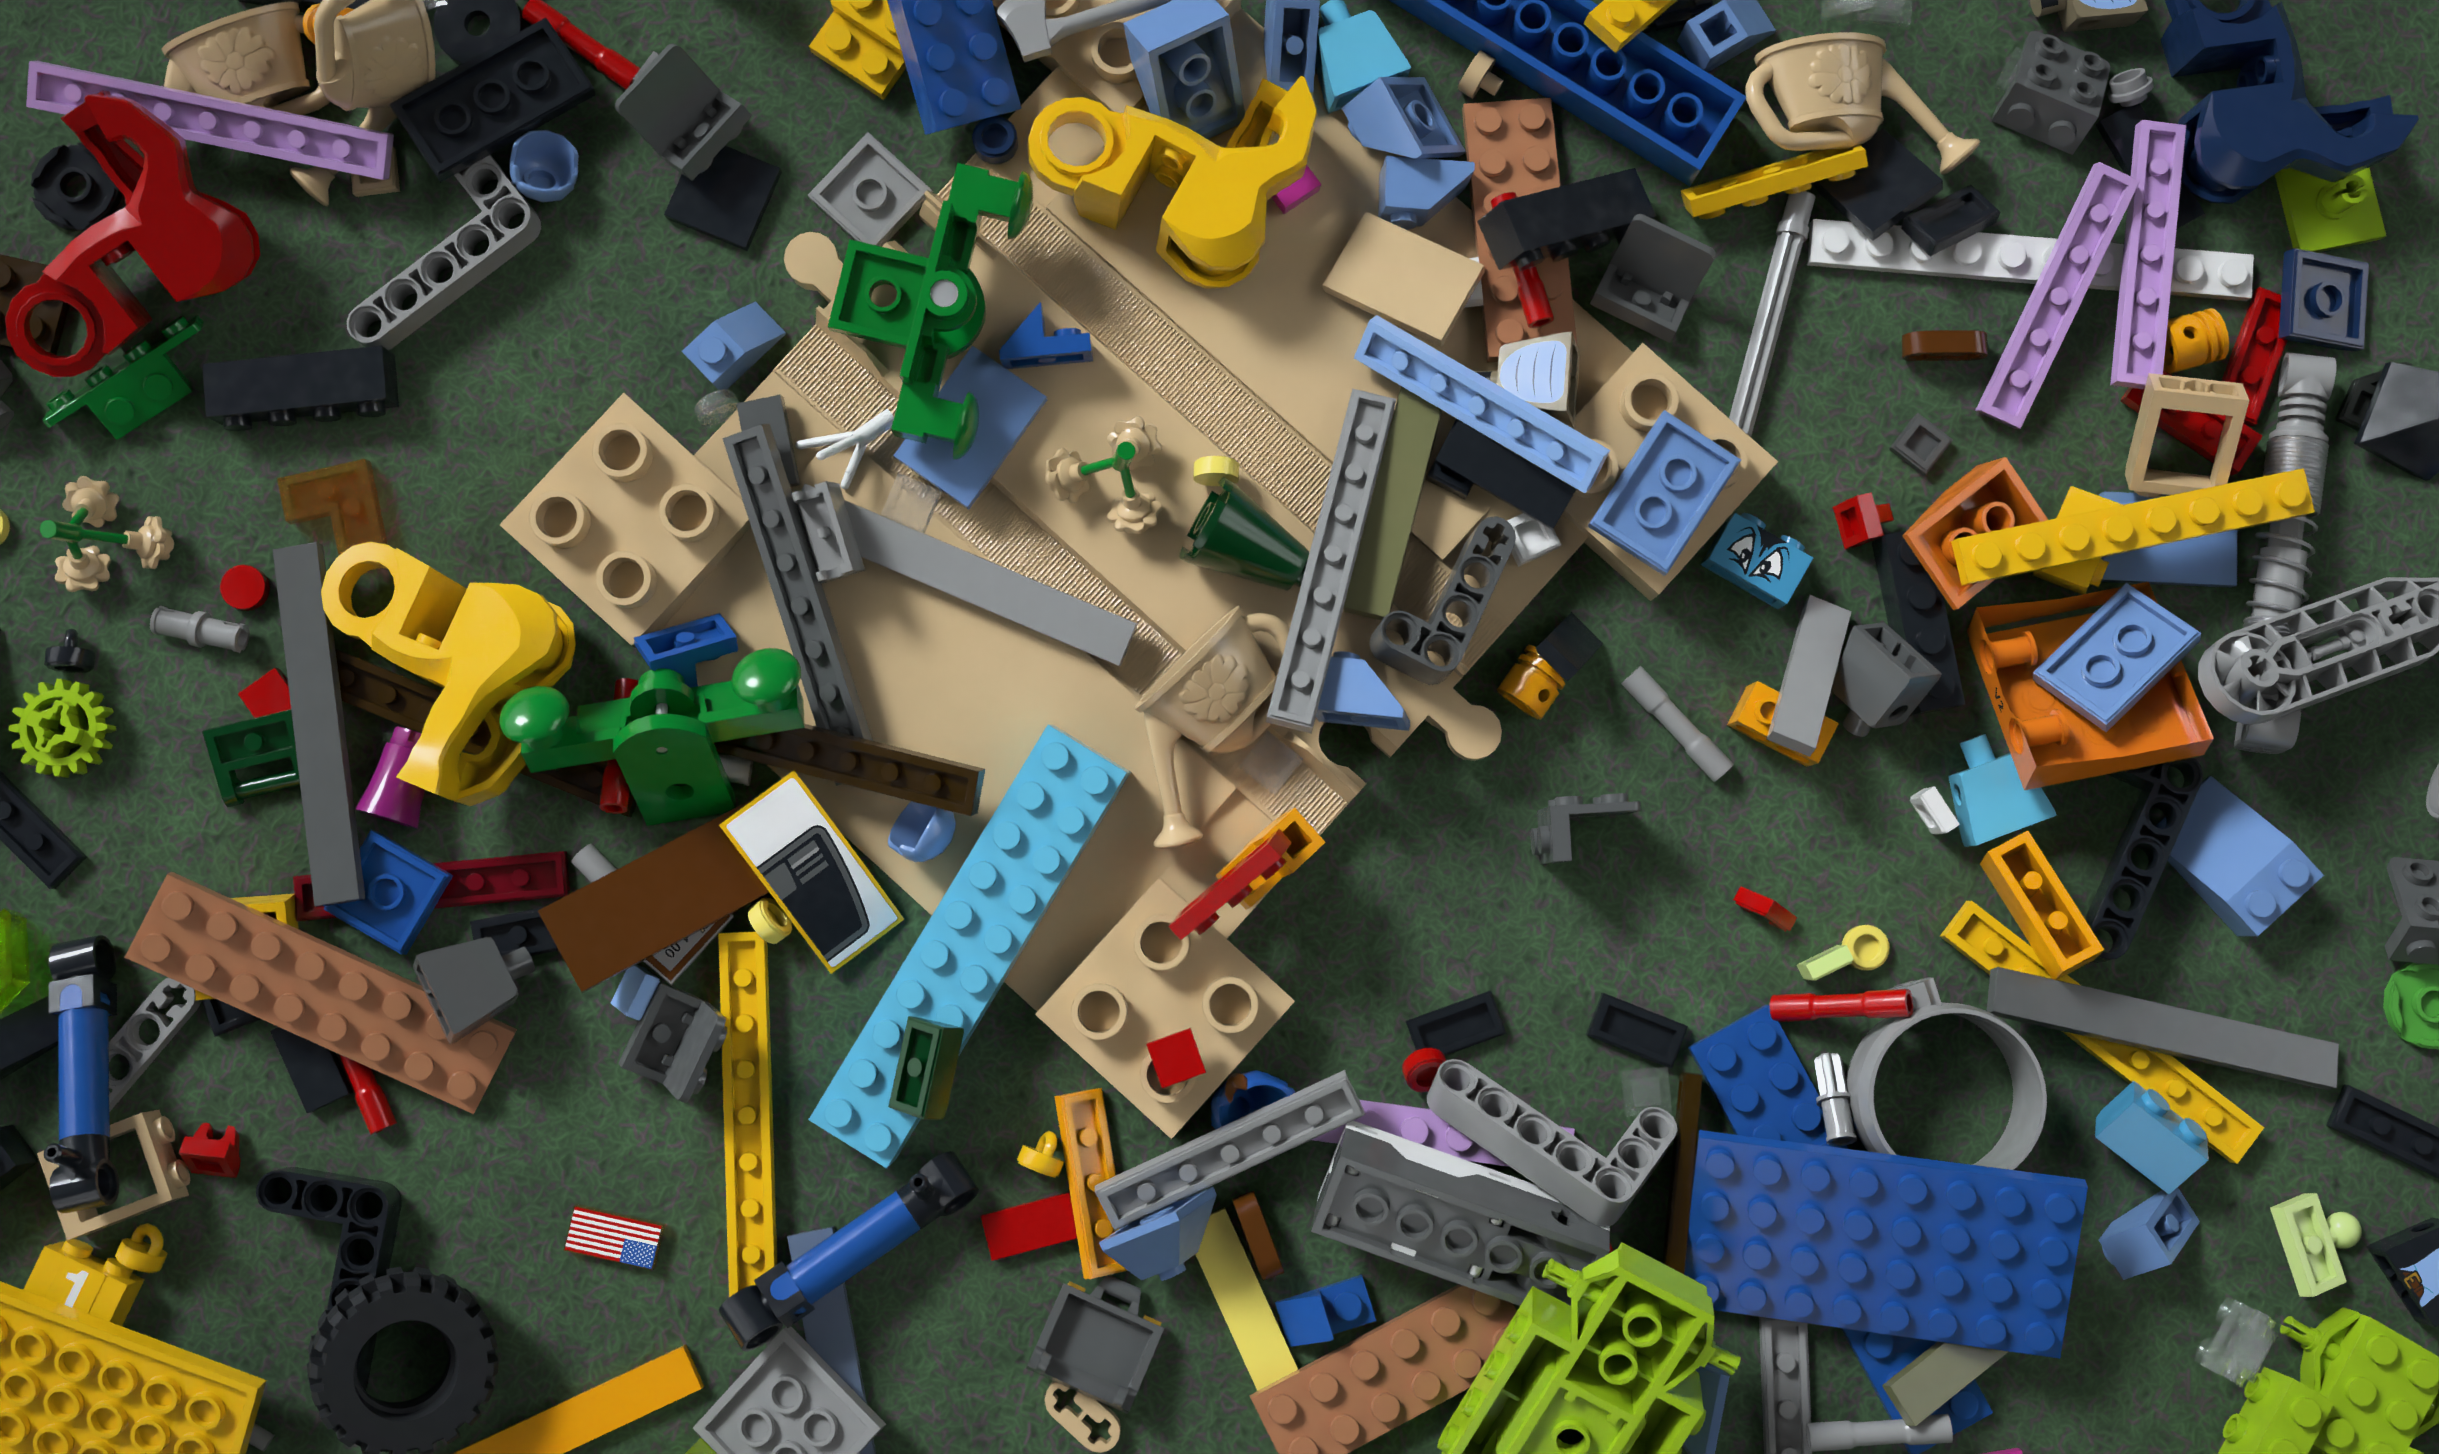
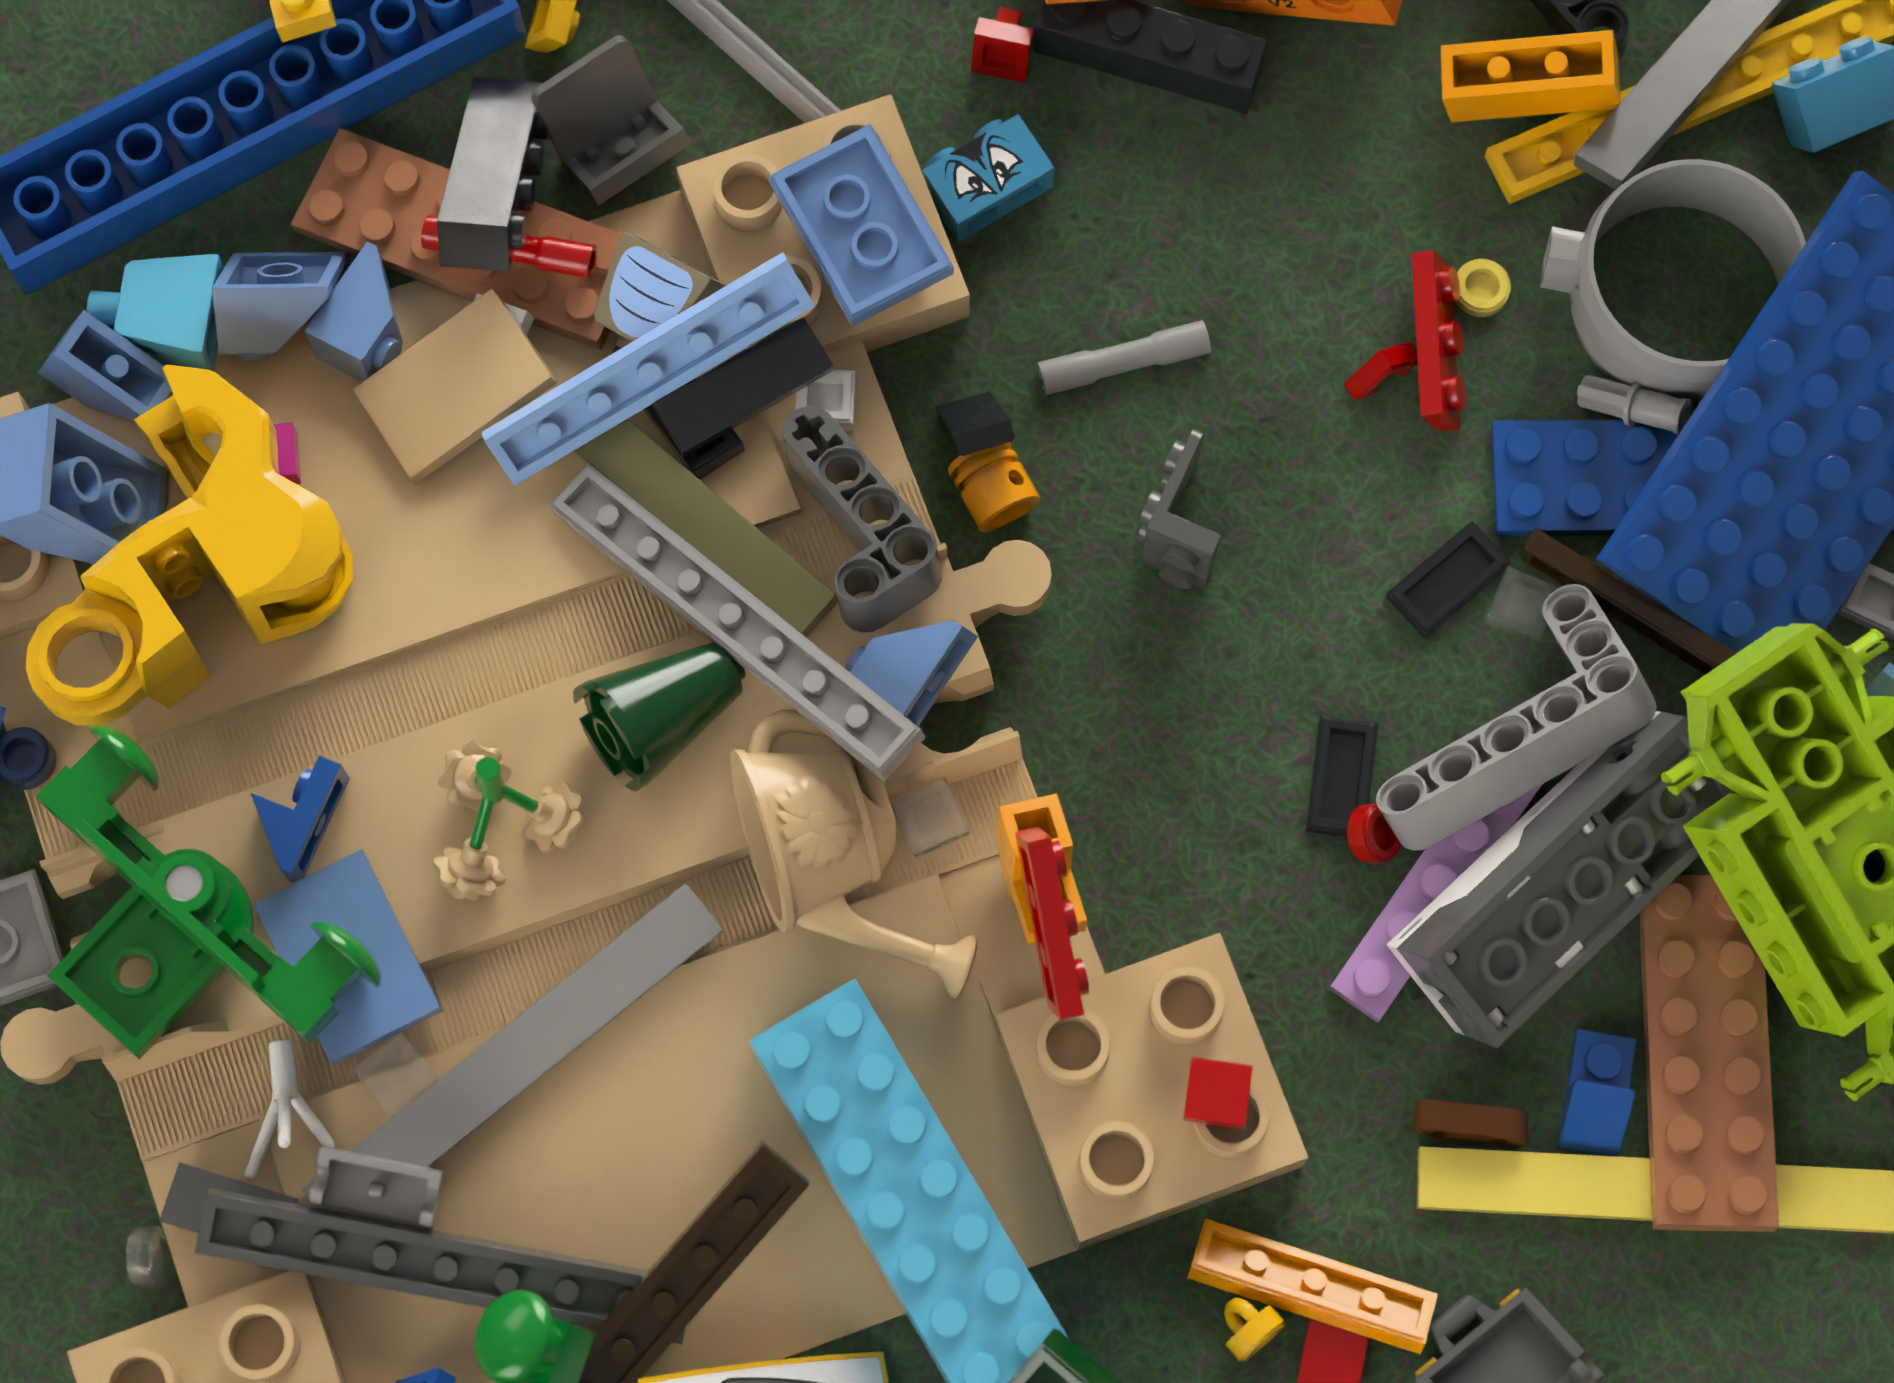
camera: 60 degrees left, 10 degrees down
(733, 344) = (83, 1199): medium blue slope -> none
(922, 832) = (790, 1265): medium blue hair -> none
(1162, 1239) = (1418, 1229): medium blue slope -> none
(1212, 469) = (556, 703): light yellow tile -> none
(1229, 1150) = (1355, 1100): light grey tile -> none
(1246, 1094) = (1317, 1050): blue hair -> none
(1479, 76) = (271, 190): tan tile -> none
(1754, 718) = (1185, 243): light orange brick -> none
(1807, 937) = (1438, 341): none -> red plate
(1809, 676) = (1148, 184): light grey tile -> none
(1825, 963) = (1477, 335): yellowish green tile -> none
(1868, 1004) = (1547, 307): red piece -> none
(1881, 678) = (1192, 113): dark grey torso -> none
(1934, 811) = (1367, 136): white tile -> none
(1991, 796) = (1382, 67): medium azure torso -> none

